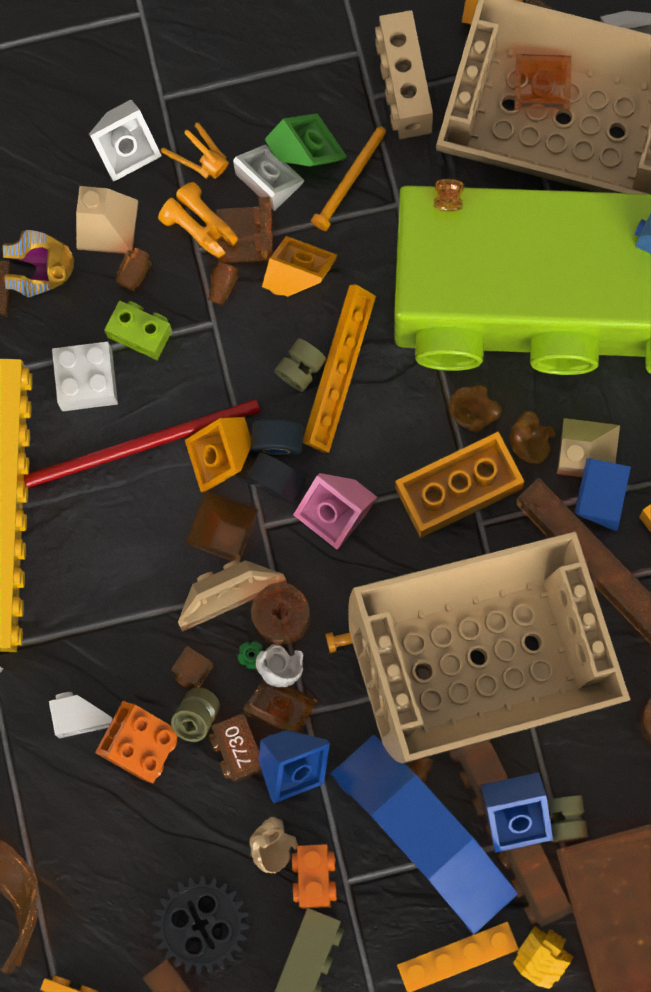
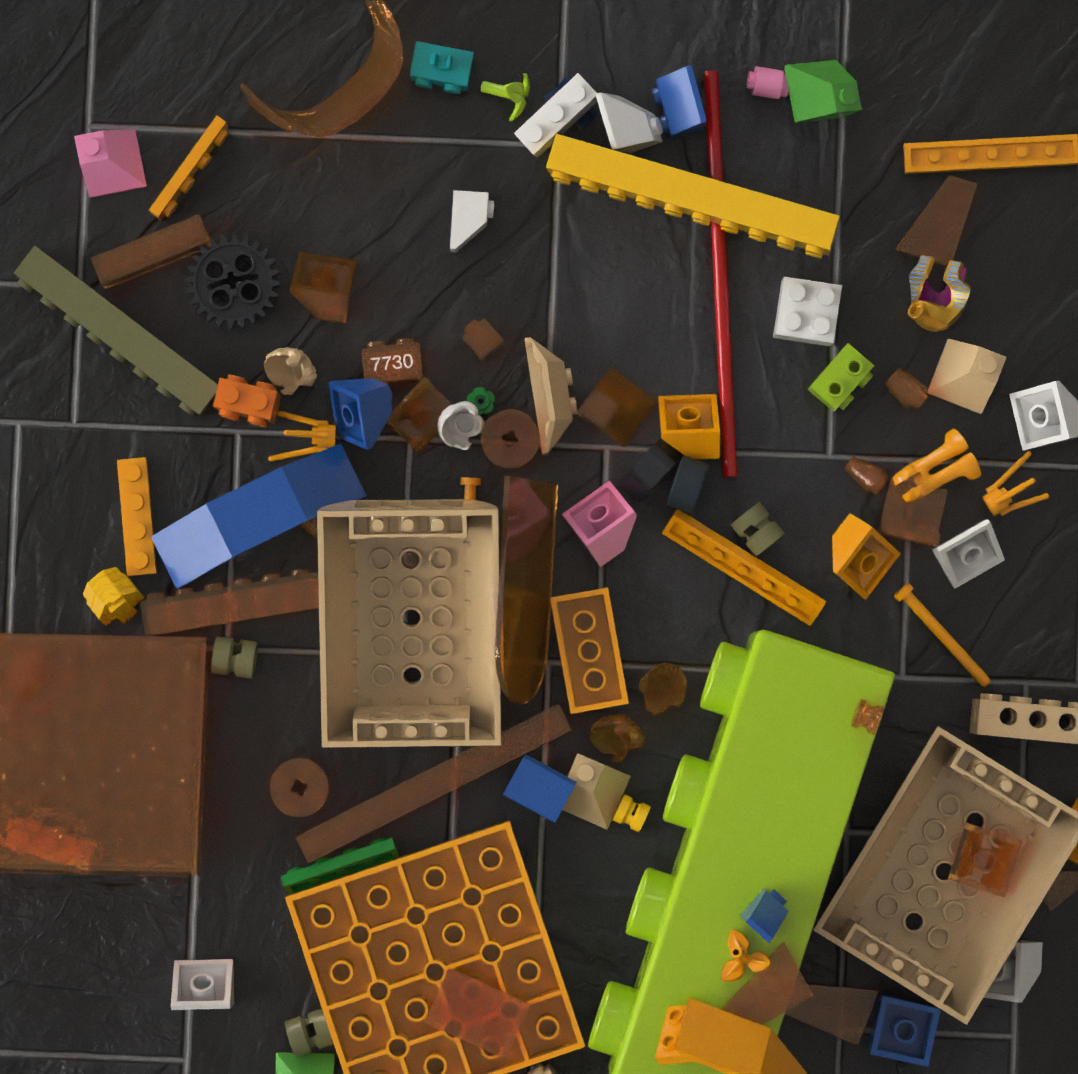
camera: 95 degrees right, 10 degrees up
(137, 742) = (423, 267): orange brick -> none
(180, 835) = (324, 285): none -> clear orange slope
(195, 714) = (435, 330): olive wheel -> none
(304, 141) = (991, 600): bright green slope -> none
(326, 796) = (322, 435): none -> light orange plant
(417, 555) = (525, 586): none -> clear orange piece
(517, 812) = (251, 609): blue slope -> none
(598, 405) = (624, 813): none -> yellow wheel

